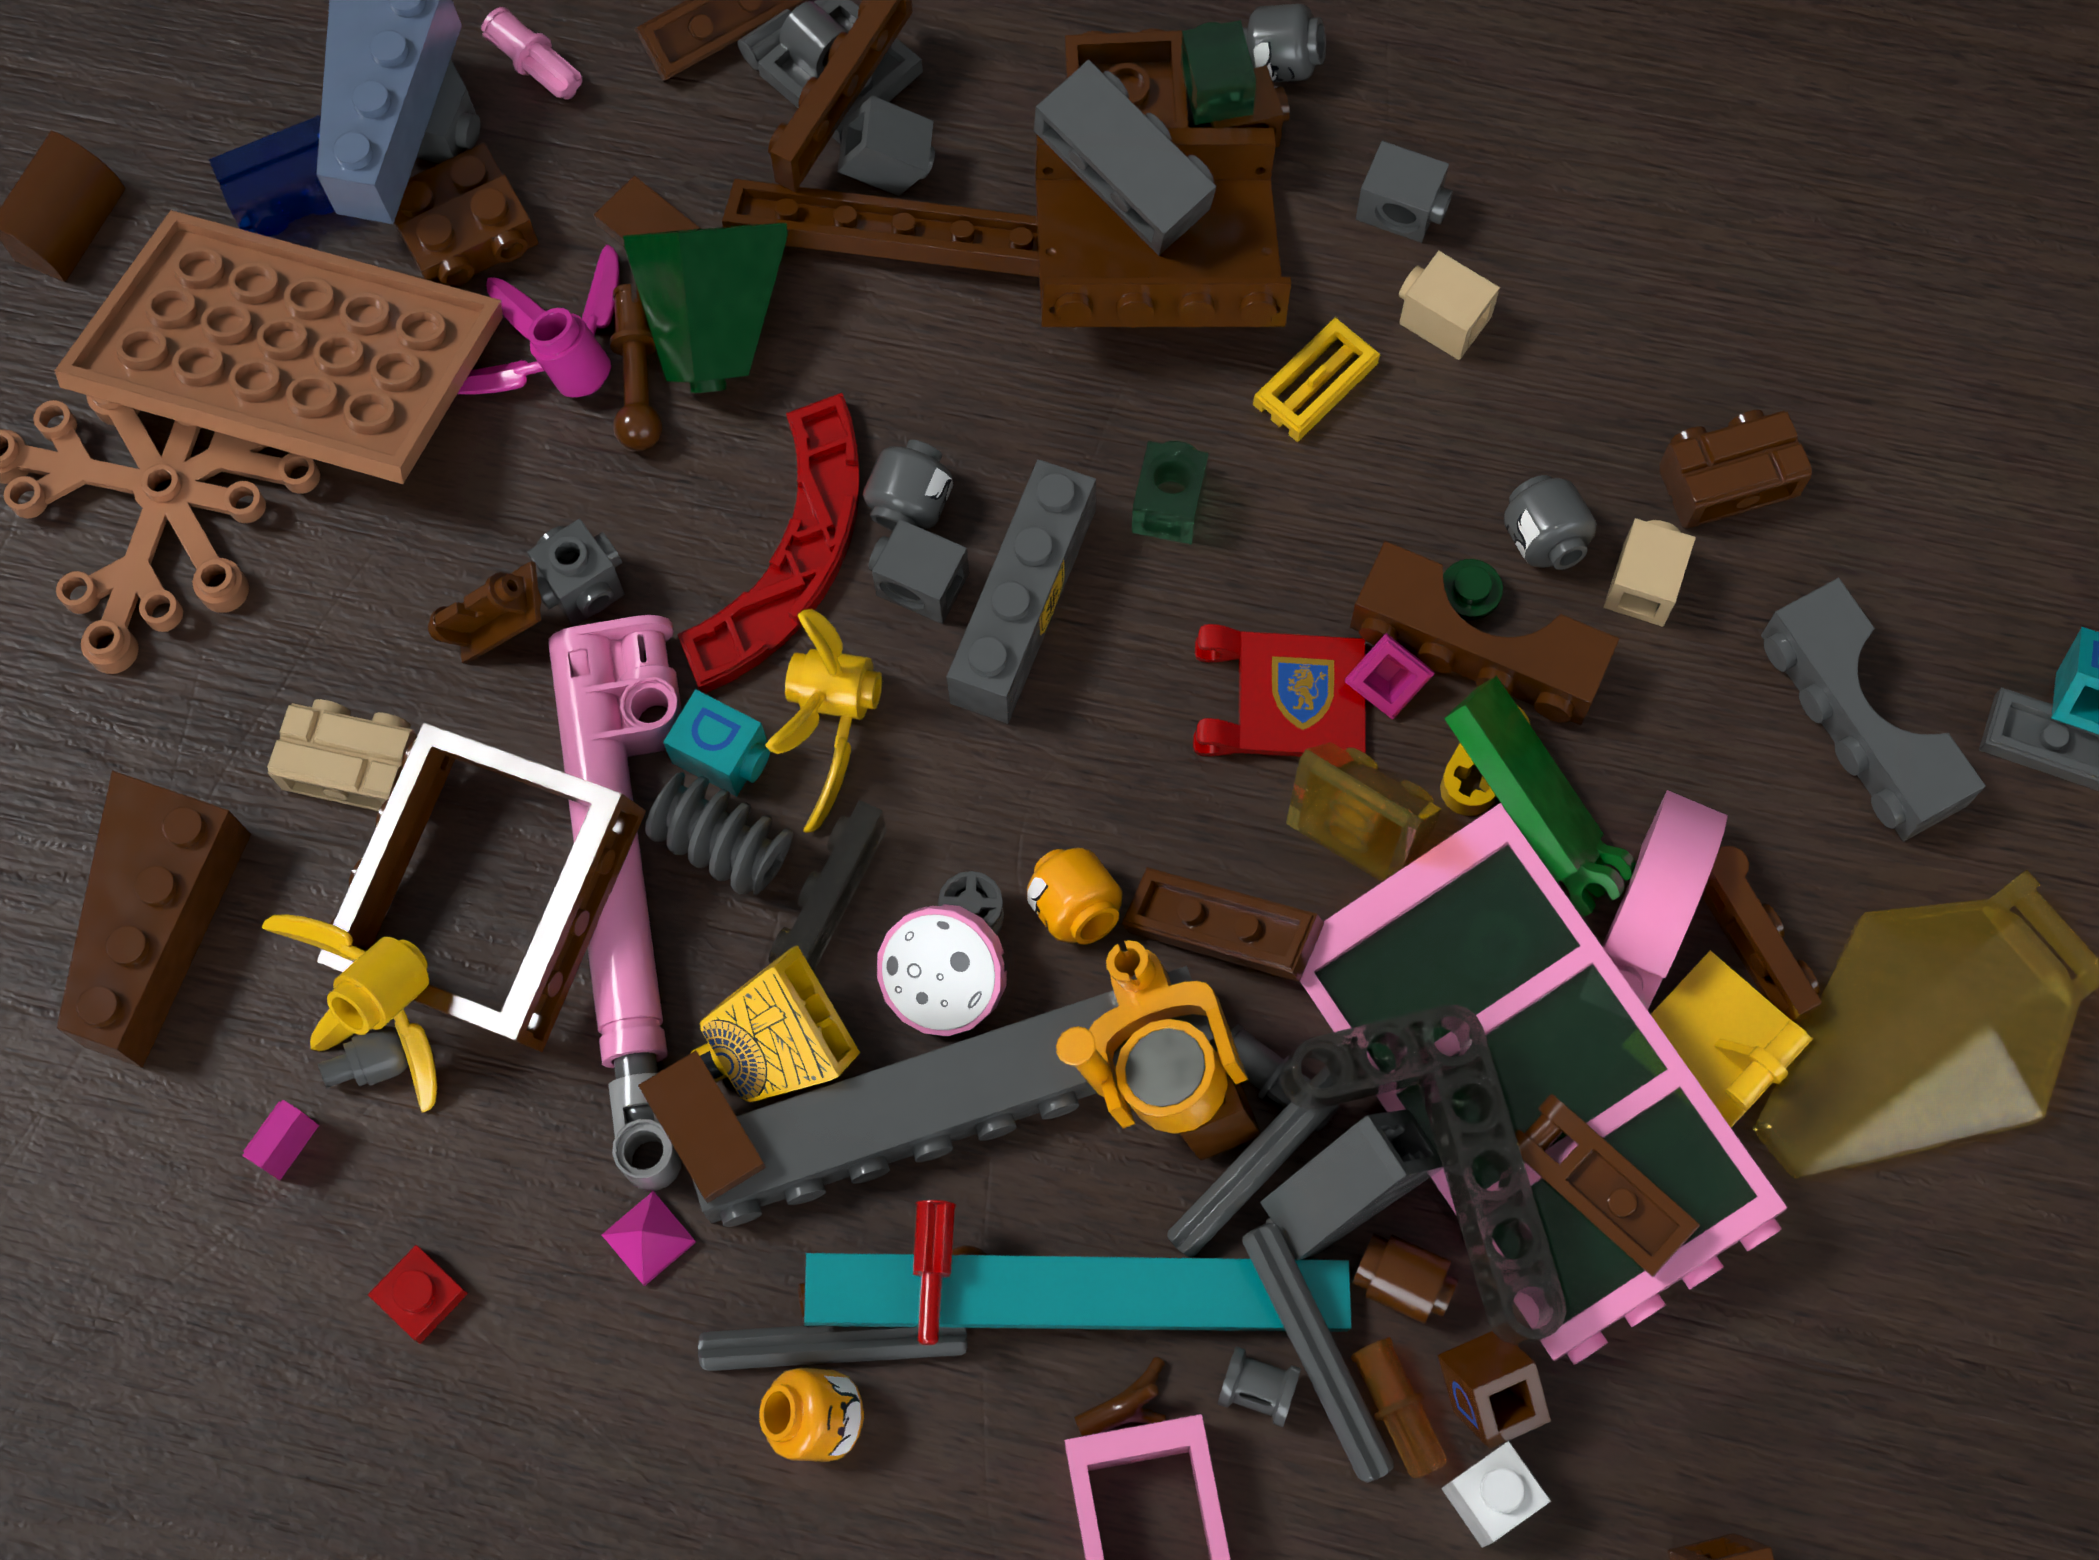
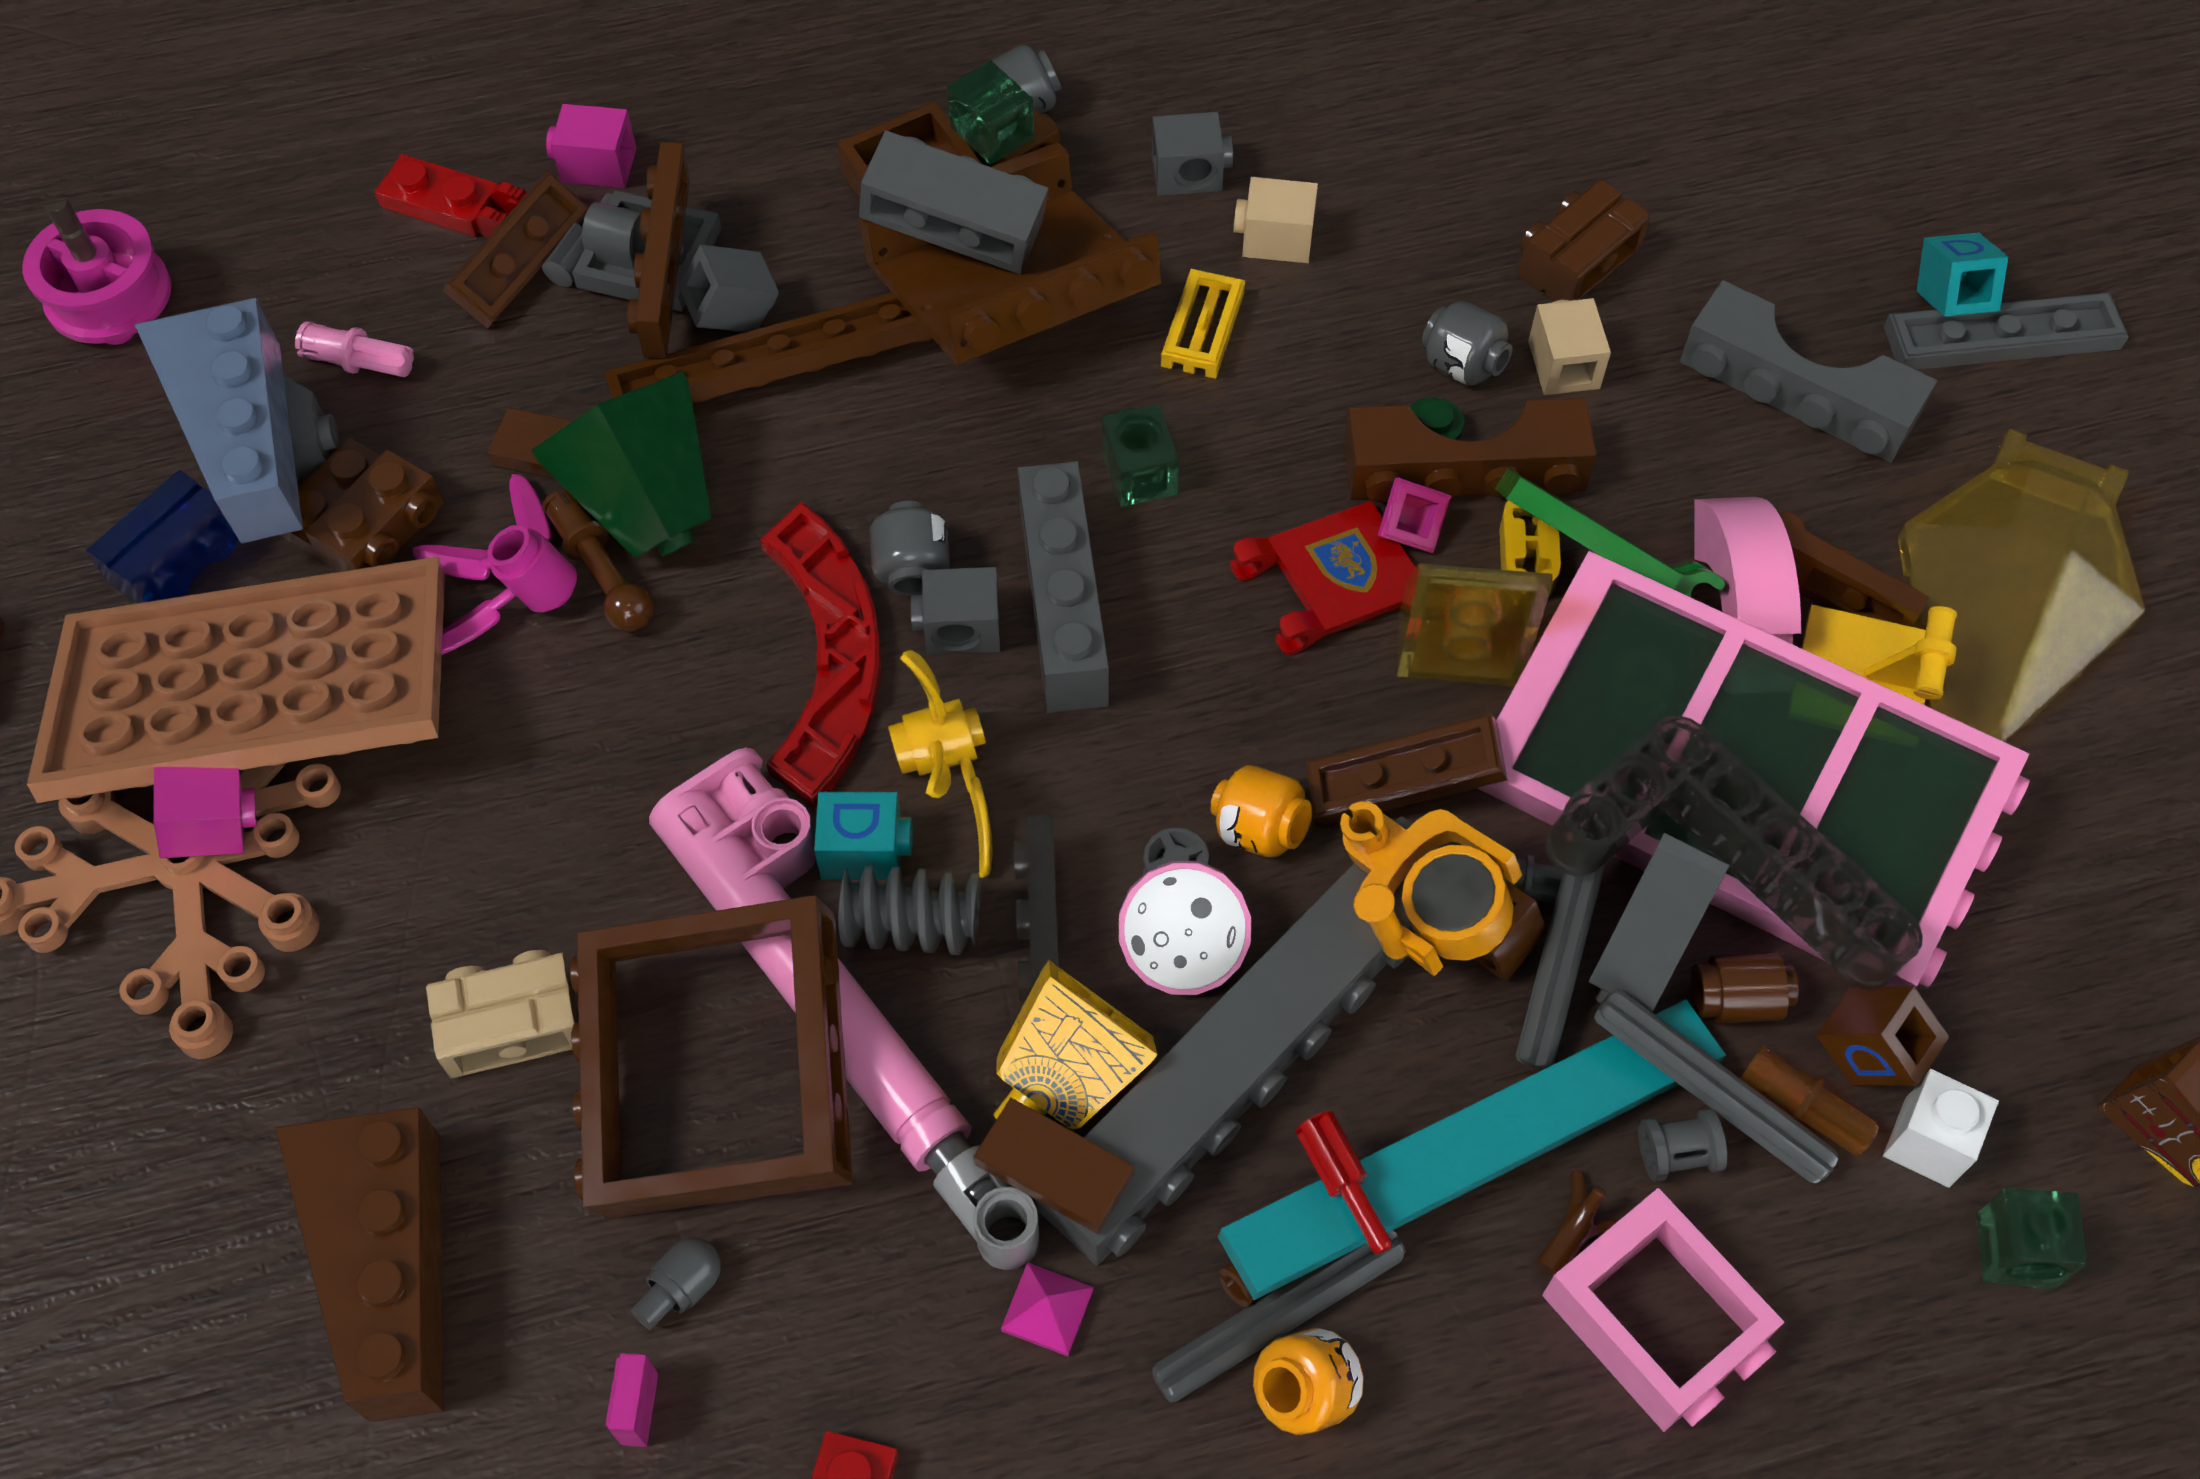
camera: 30 degrees left, 10 degrees down
(187, 456) = (201, 811): none -> dark pink brick
(369, 993) = (663, 1205): yellow plant -> none
(490, 613) = (582, 818): reddish brown hinge -> none
(576, 571) = (642, 748): dark grey brick -> none
(1606, 1188) = (1882, 810): reddish brown plate -> none

